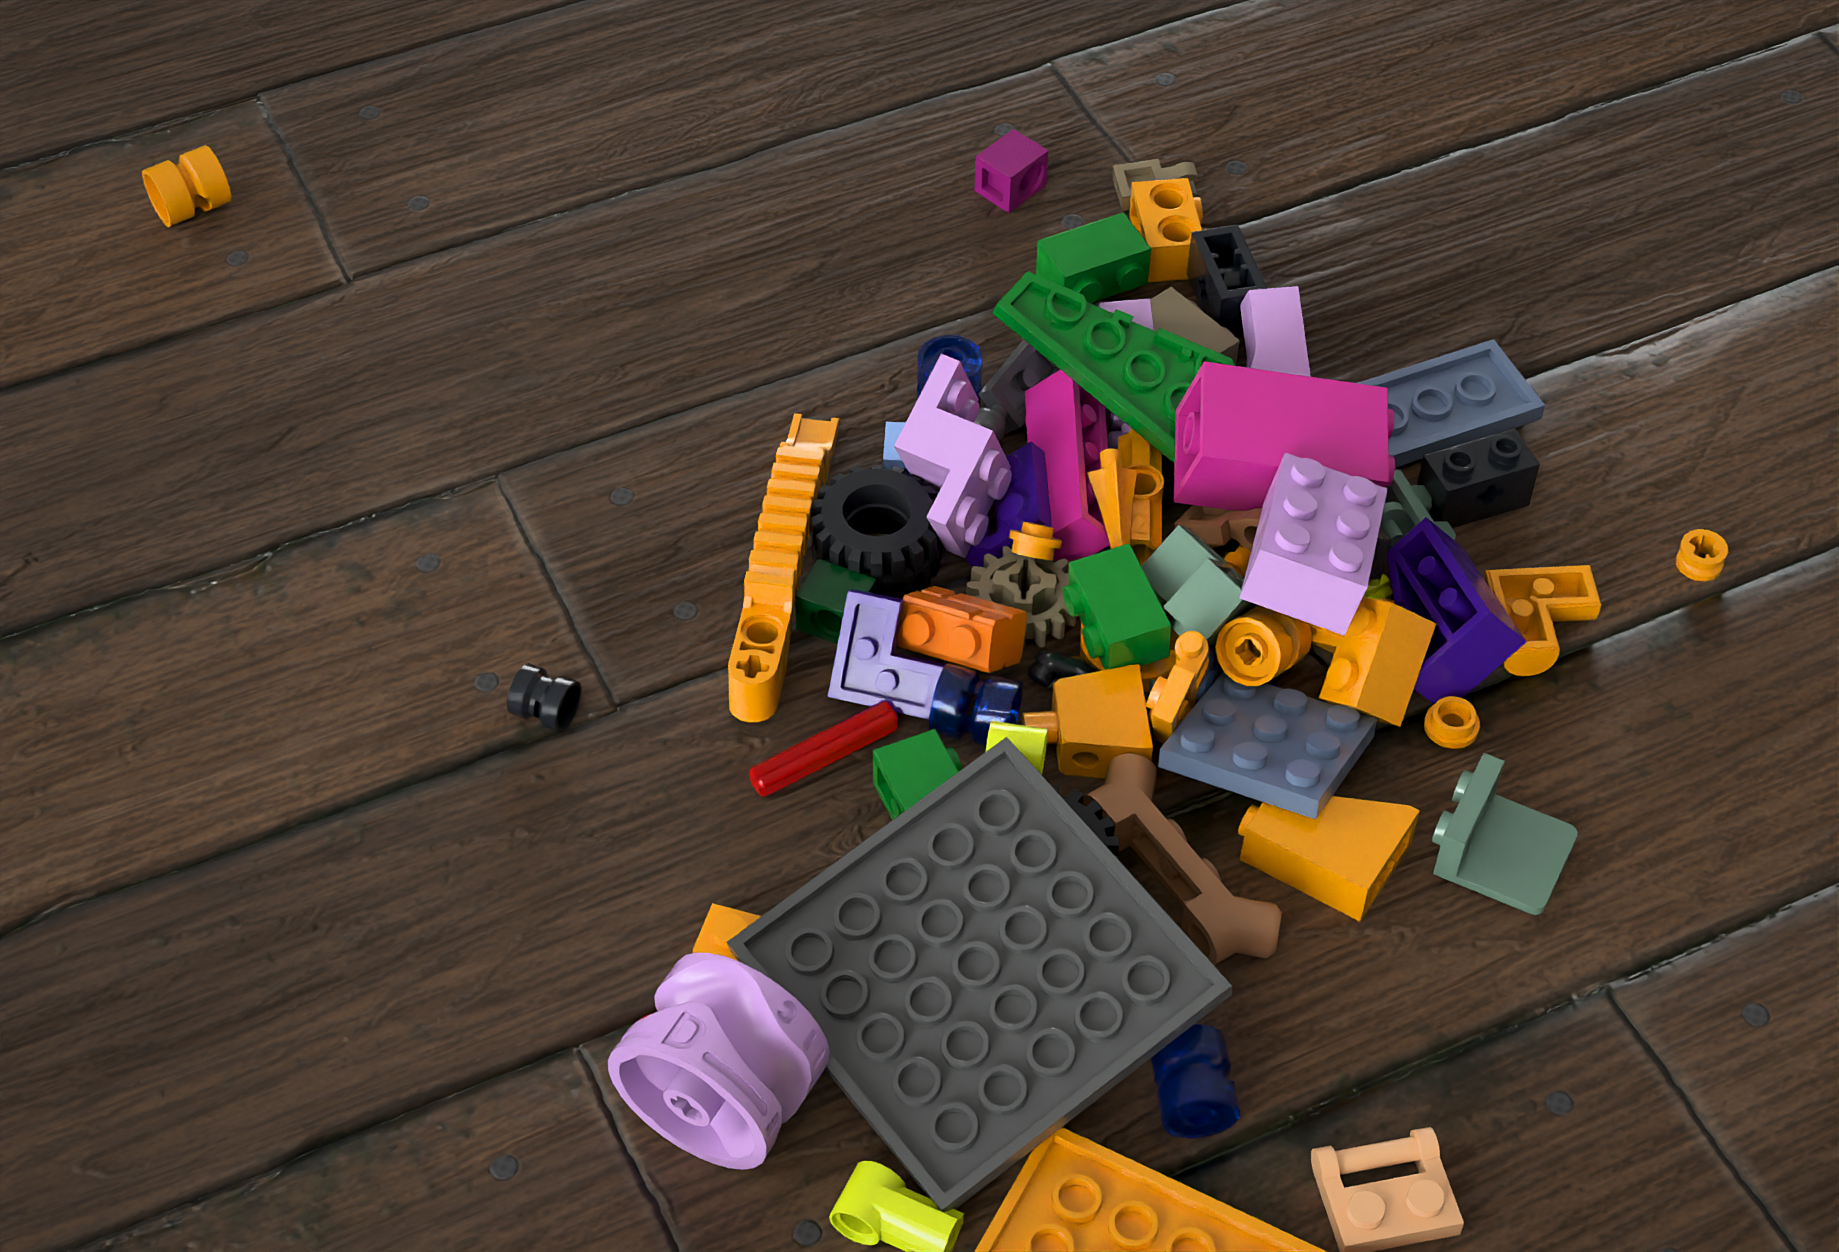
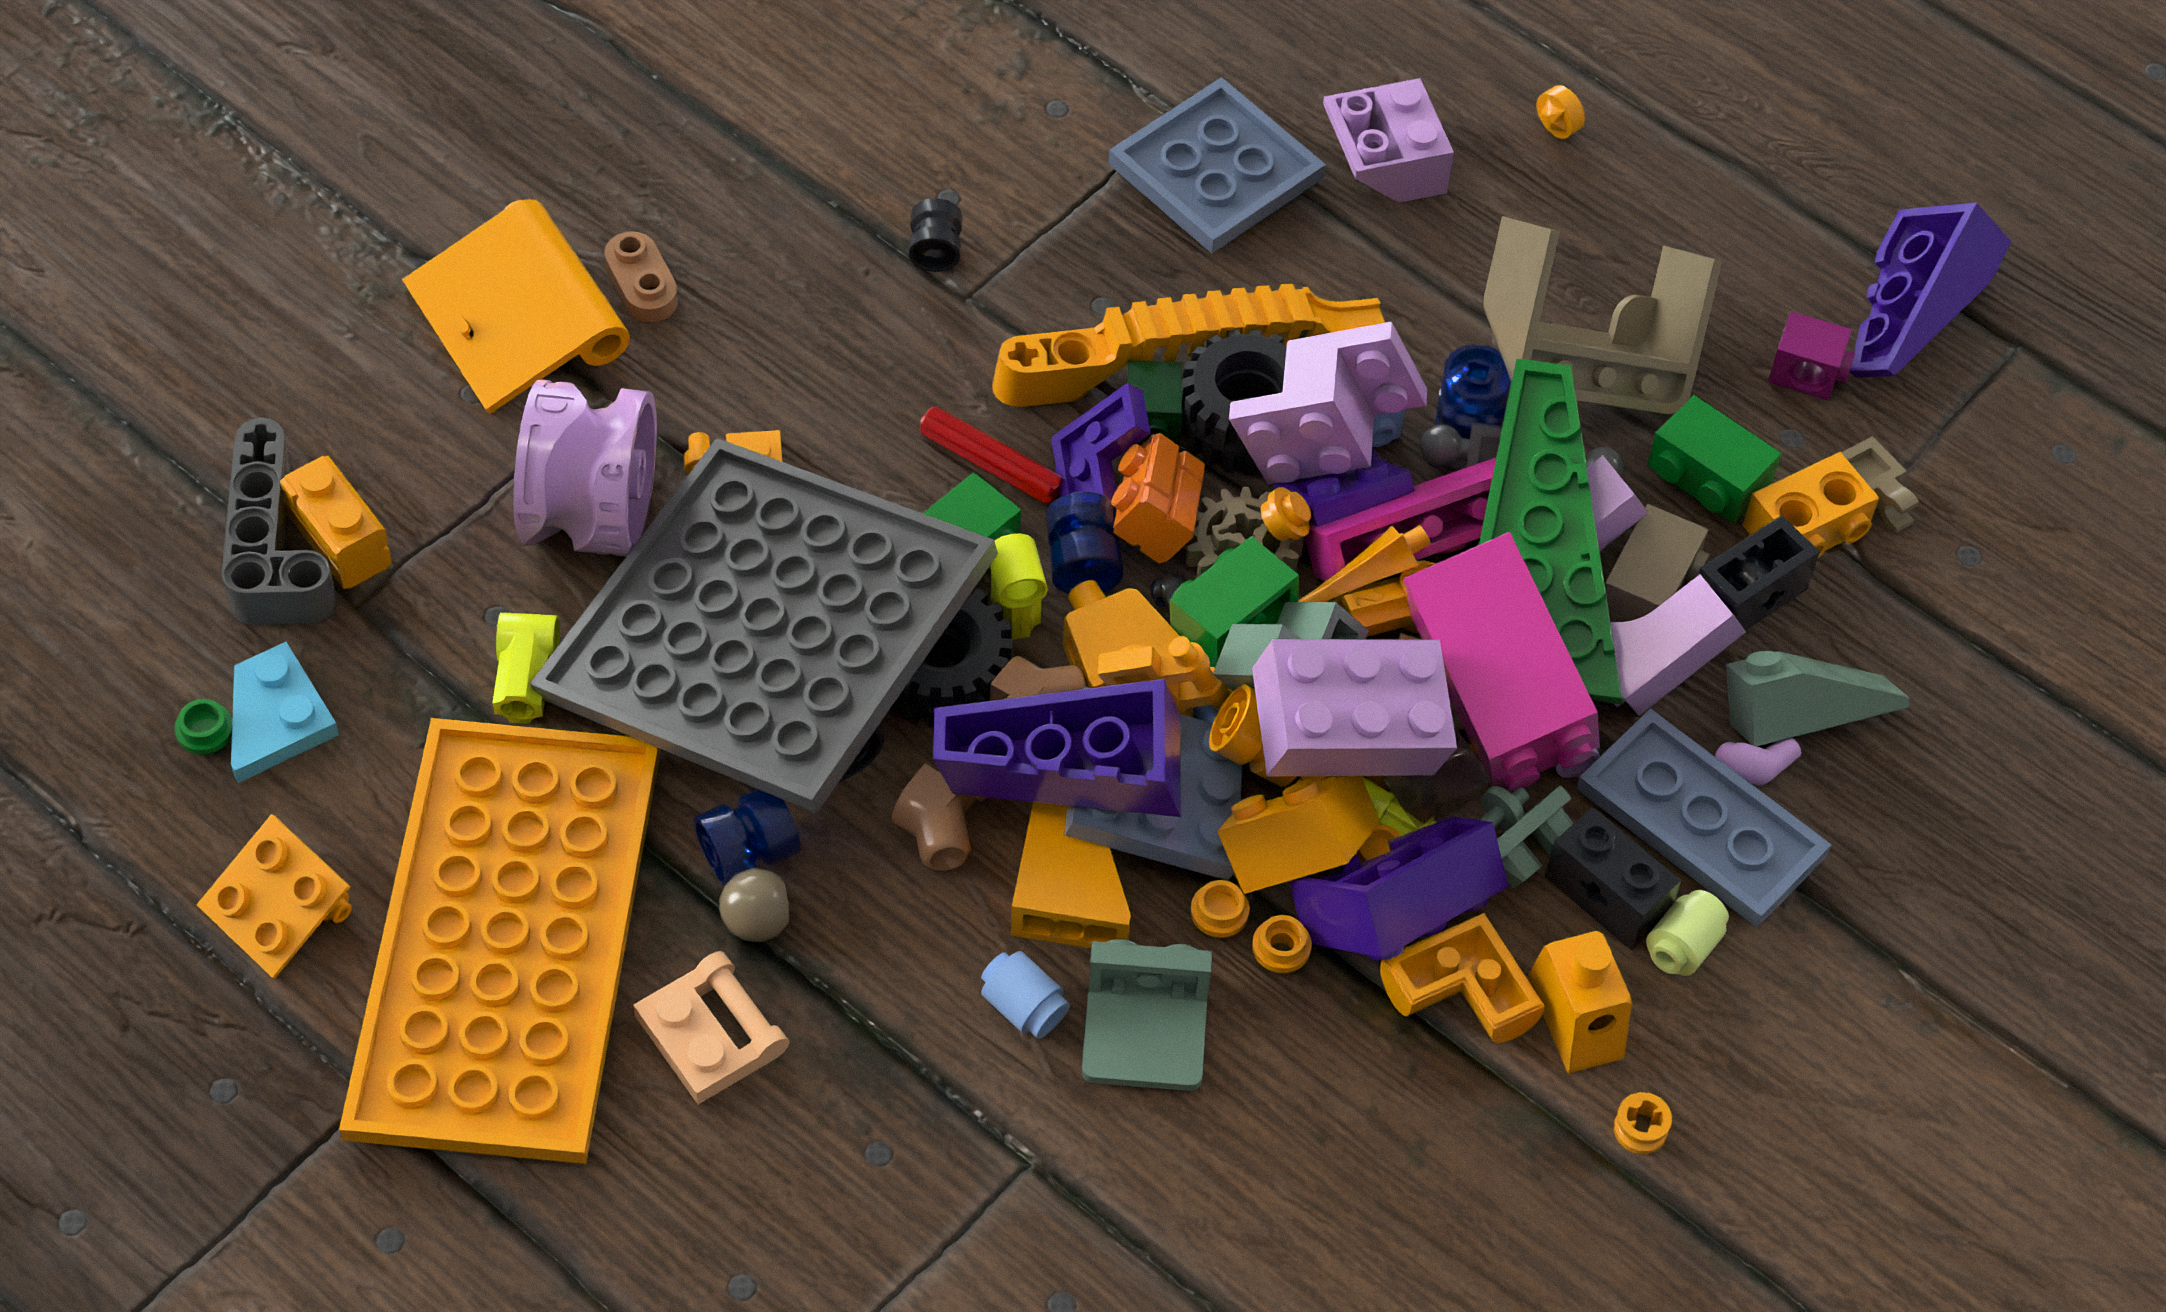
camera: 65 degrees right, 5 degrees up
(421, 1086) = (523, 301): none -> light orange door
(441, 963) = (634, 268): none -> medium nougat plate
(581, 466) = (1216, 164): none -> sand blue plate
(639, 324) = (1393, 139): none -> lavender slope
(667, 219) = (1560, 111): none -> light orange tile
(936, 258) = (1651, 343): none -> dark tan windscreen
(972, 78) = (1928, 273): none -> dark purple wedge
(1271, 753) = (1067, 748): none -> dark purple wedge
(1273, 1102) = (755, 905): none -> dark tan piece
(1349, 304) = (1793, 695): none -> sand green slope
(1389, 351) = (1759, 764): none -> lavender arm
(1400, 753) = (1220, 909): none -> light orange plate
(1444, 923) = (1024, 994): none -> light blue brick
(1555, 459) = (1687, 933): none -> yellowish green brick
(1589, 529) = (1581, 990): none -> light orange torso

